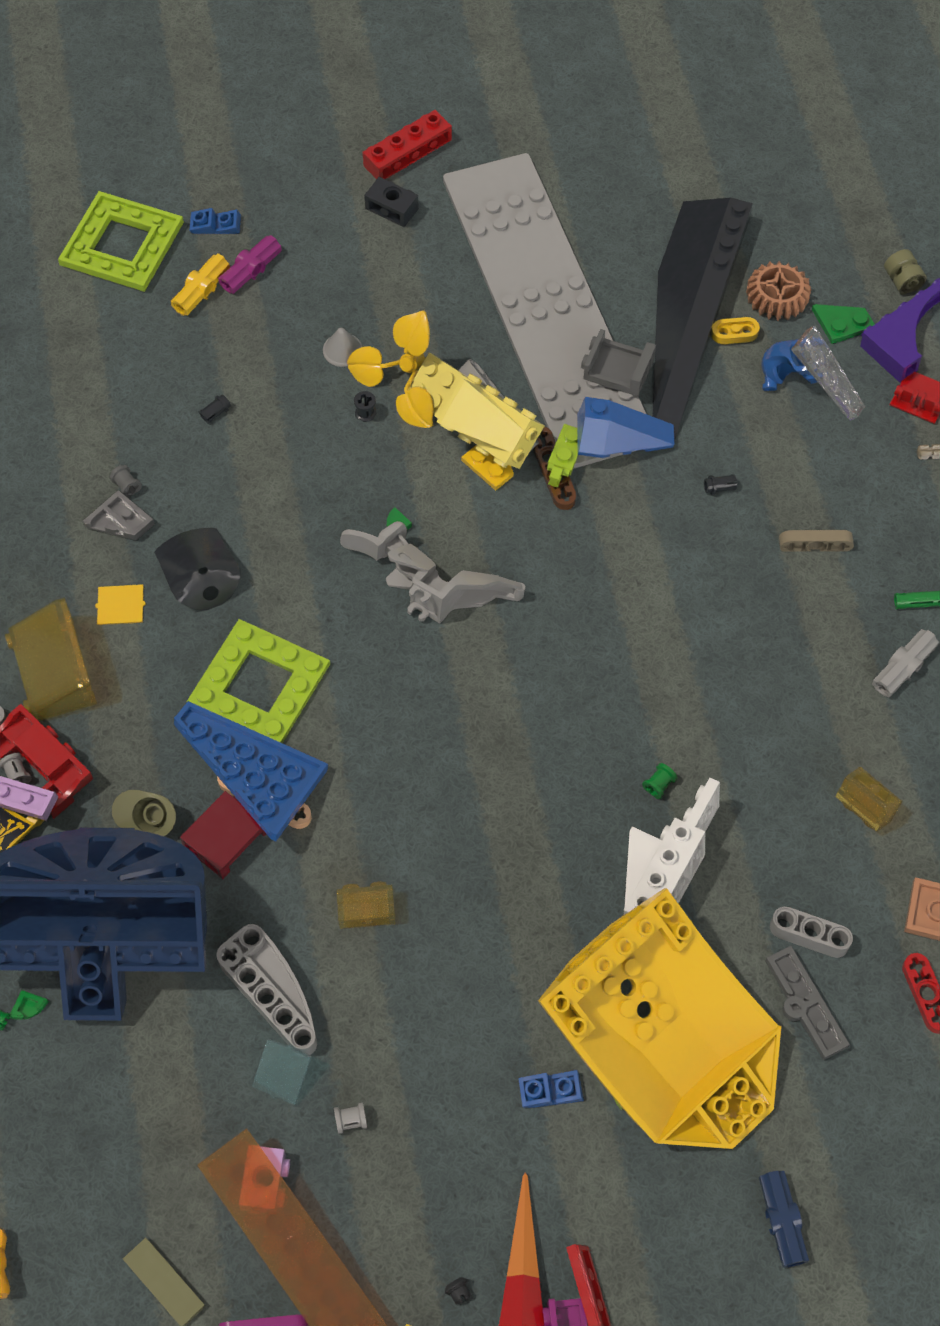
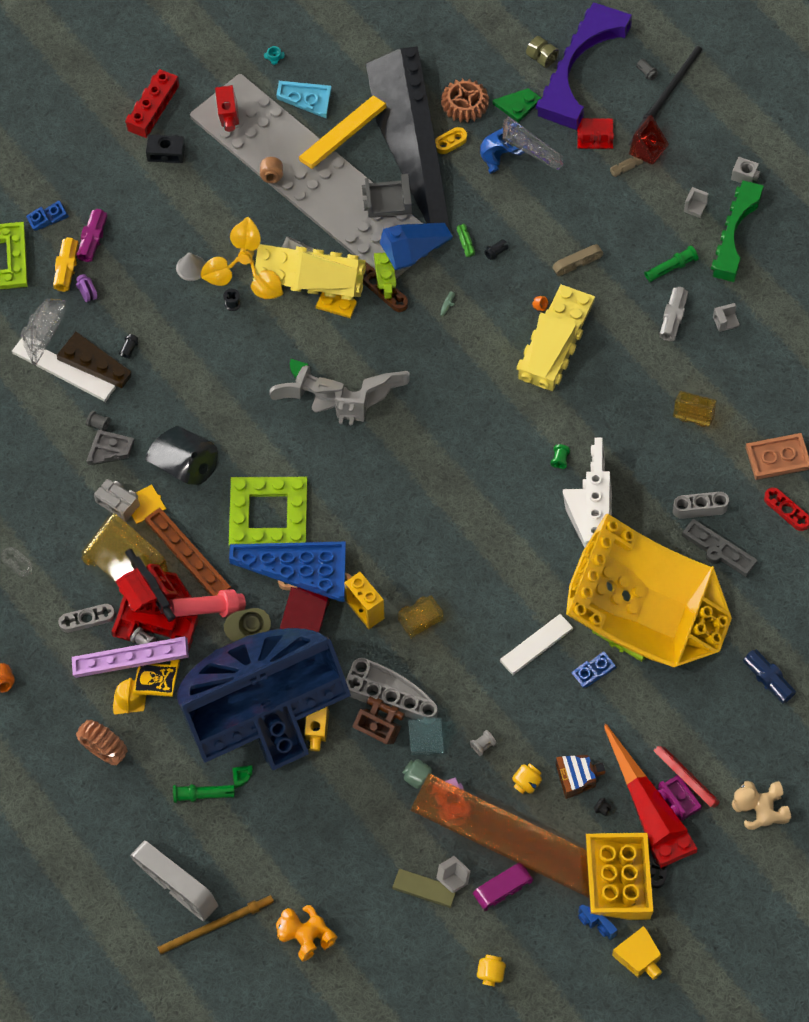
camera: 25 degrees left, 0 degrees up
(53, 714) = (150, 587): none -> red piece
(89, 584) = (116, 499): none -> light grey brick
(126, 404) = (74, 376): none -> white tile
(127, 343) = (42, 327): none -> clear wedge
(132, 690) = (186, 552): none -> dark orange plate
(135, 773) = (224, 603): none -> coral piece
(161, 404) = (90, 359): none -> dark brown wing
(161, 987) = (317, 720): none -> yellow torso
(206, 1285) = (453, 874): none -> light grey panel
(207, 313) = (86, 287): none -> medium lavender arm
(227, 1027) = (376, 725): none -> reddish brown brick
(242, 1114) = (416, 773): none -> sand green head
(302, 851) = (363, 596): none -> yellow window
(379, 1198) = (527, 778): none -> yellow head
(449, 1226) = (577, 774): none -> torso
(485, 181) = (227, 112): none -> red torso
(491, 1017) = (536, 644): none -> white tile
(496, 274) = (271, 170): none -> medium nougat head
(579, 148) = (274, 50): none -> teal plate
(589, 209) = (306, 96): none -> medium azure wing
(607, 266) = (342, 132): none -> yellow tile
(624, 524) = (447, 303): none -> sand green helmet
(688, 457) = (465, 240): none -> bright green axle
(733, 626) = (555, 338): none -> light yellow wedge
(741, 569) = (540, 300): none -> orange hinge

